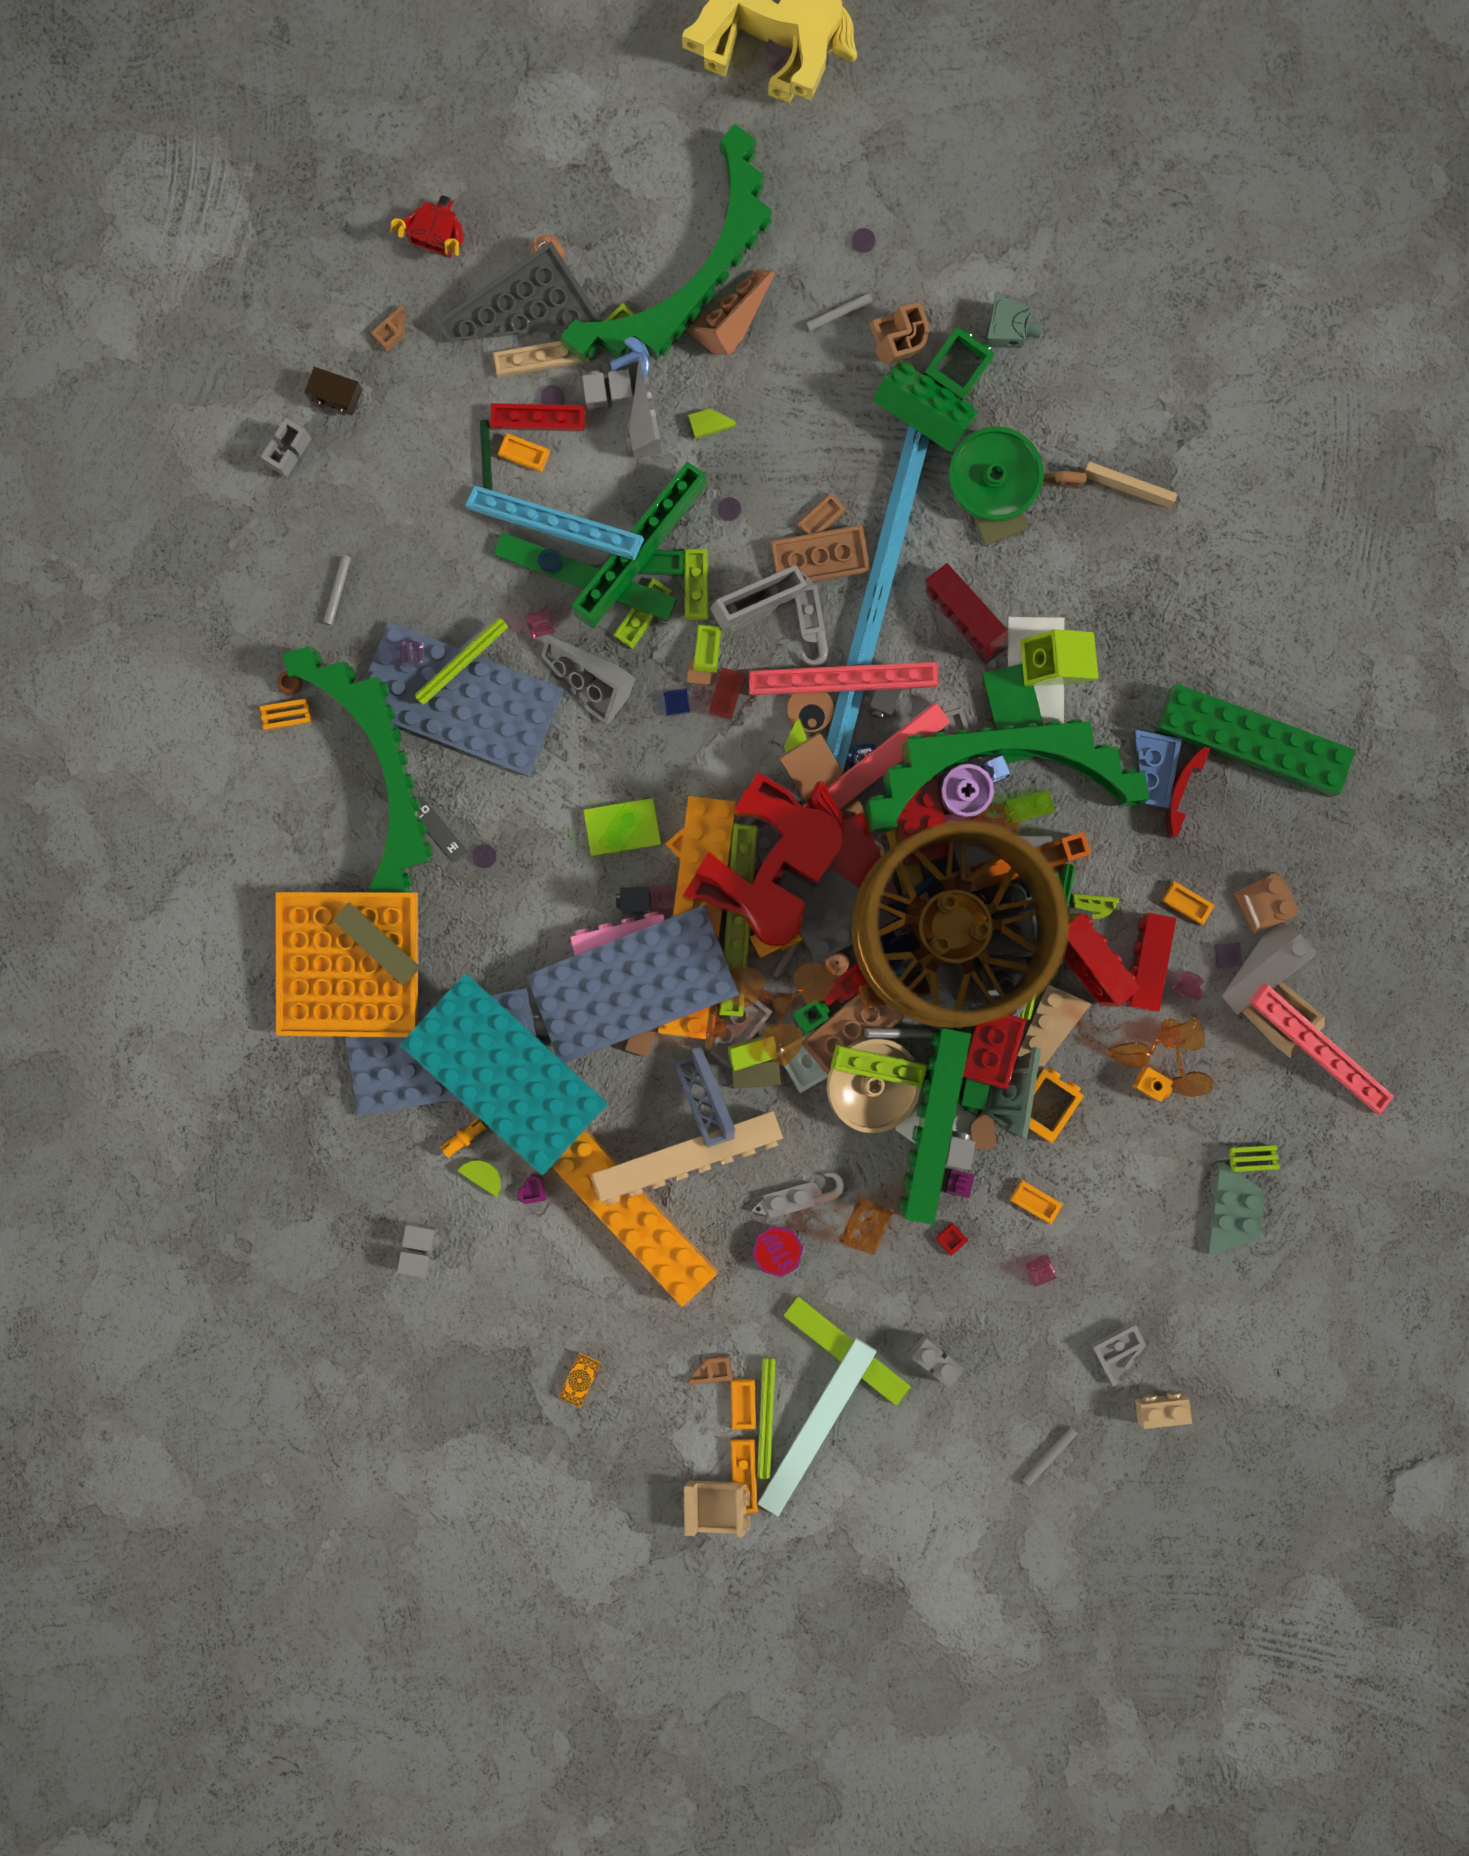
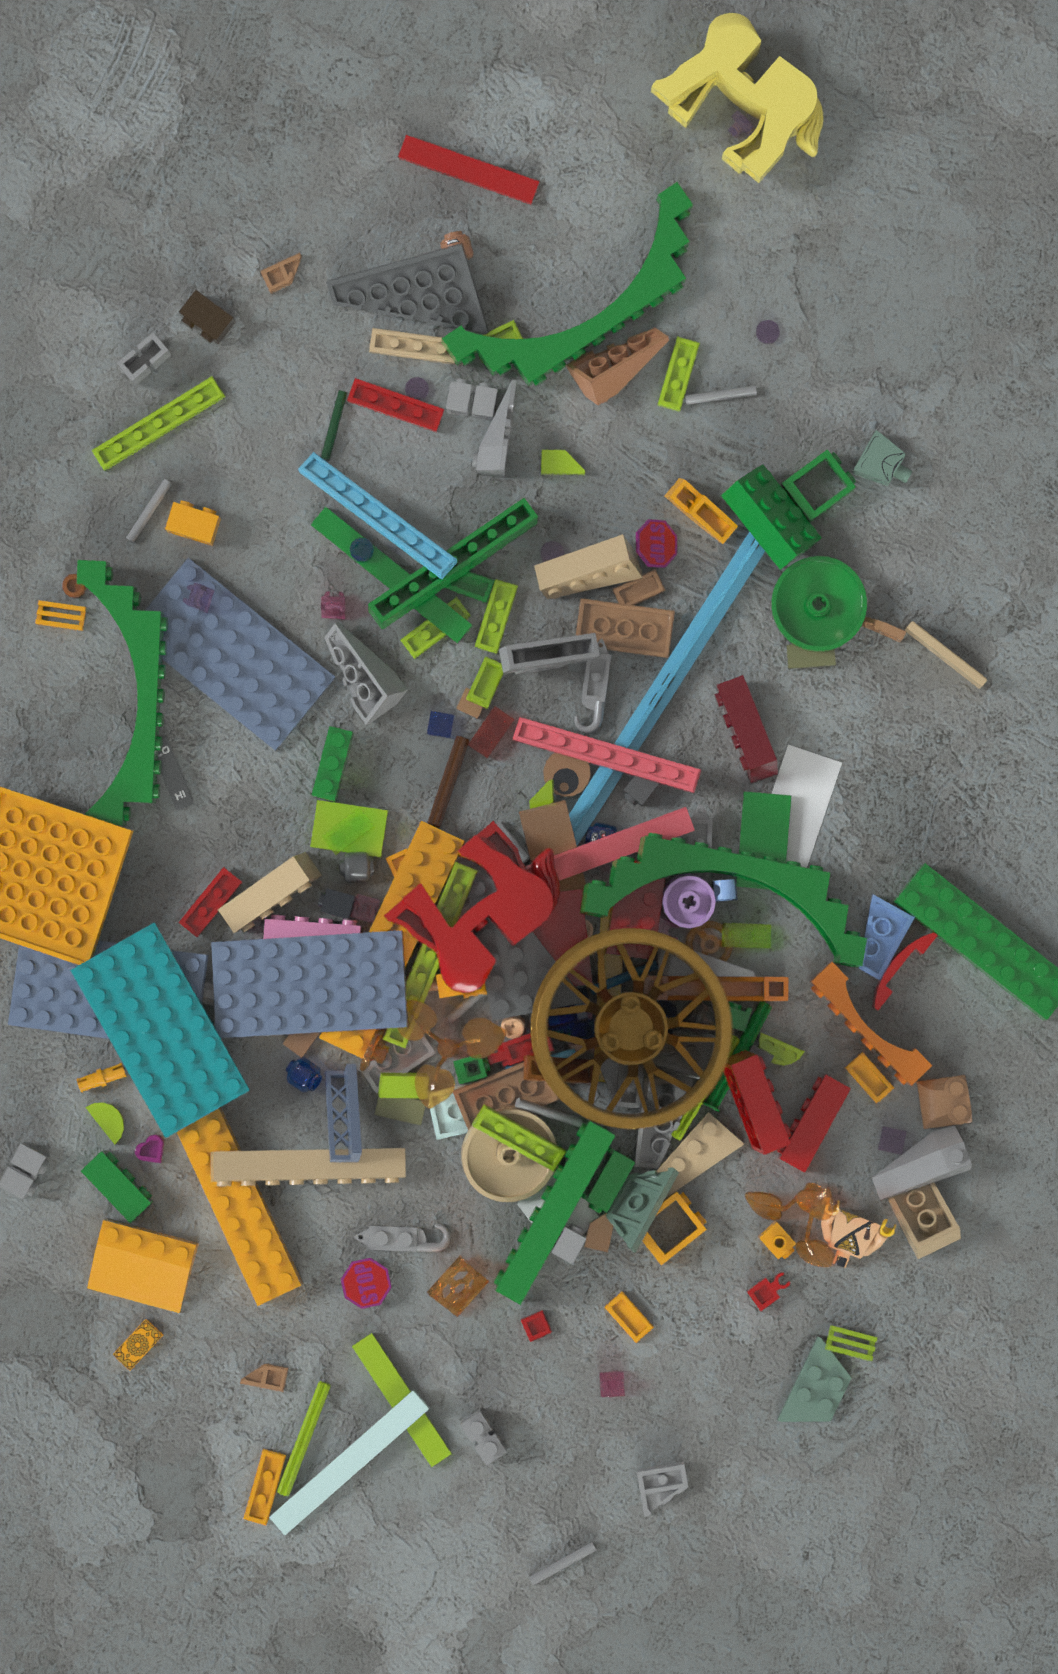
camera: 20 degrees right, 0 degrees up
(320, 505) = (158, 423): none -> lime tile
(376, 943) = (79, 867): olive tile -> none
(382, 587) = (193, 523): none -> light orange brick
(432, 227) = (354, 189): red torso -> none
(461, 661) = (245, 620): lime axle -> none
(484, 856) = (208, 813): clear purple piece -> none
(511, 1235) = (117, 1185): none -> green brick
(513, 938) = (209, 902): none -> red plate
(524, 452) = (371, 435): light orange tile -> none
(535, 178) = (468, 169): none -> red tile
(559, 1303) = (142, 1265): none -> light orange slope
(566, 910) = (270, 892): none -> tan wedge
(587, 770) = (332, 764): none -> green brick
(639, 353) = (511, 377): medium blue plant -> none
(641, 860) = (356, 867): none -> dark grey head
(654, 1072) = (303, 1075): none -> clear blue head
(701, 752) = (448, 781): none -> reddish brown axle
(716, 1507) = (228, 1507): tan panel -> none
(743, 1404) = (286, 1418): light orange tile -> none
(769, 509) = (589, 568): none -> tan wedge
(793, 305) = (678, 374): none -> lime tile
(824, 467) = (656, 543): none -> piece
(856, 423) = (701, 510): none -> light orange slope
(901, 334) = (771, 438): medium nougat brick -> none
(959, 1183) = (561, 1275): magenta tile -> none
(994, 1050) = (633, 1158): red tile -> none
(1059, 658) = (821, 802): lime slope -> none
(1125, 828) = (832, 985): none -> orange arch
(1157, 1137) = (765, 1292): none -> red plate
(1163, 1411) = (684, 1554): tan brick -> none
(1189, 986) = (843, 1158): clear pink tile -> none
(1225, 1056) = (853, 1235): none -> light nougat torso
(1320, 1048) = (946, 1258): coral tile -> none

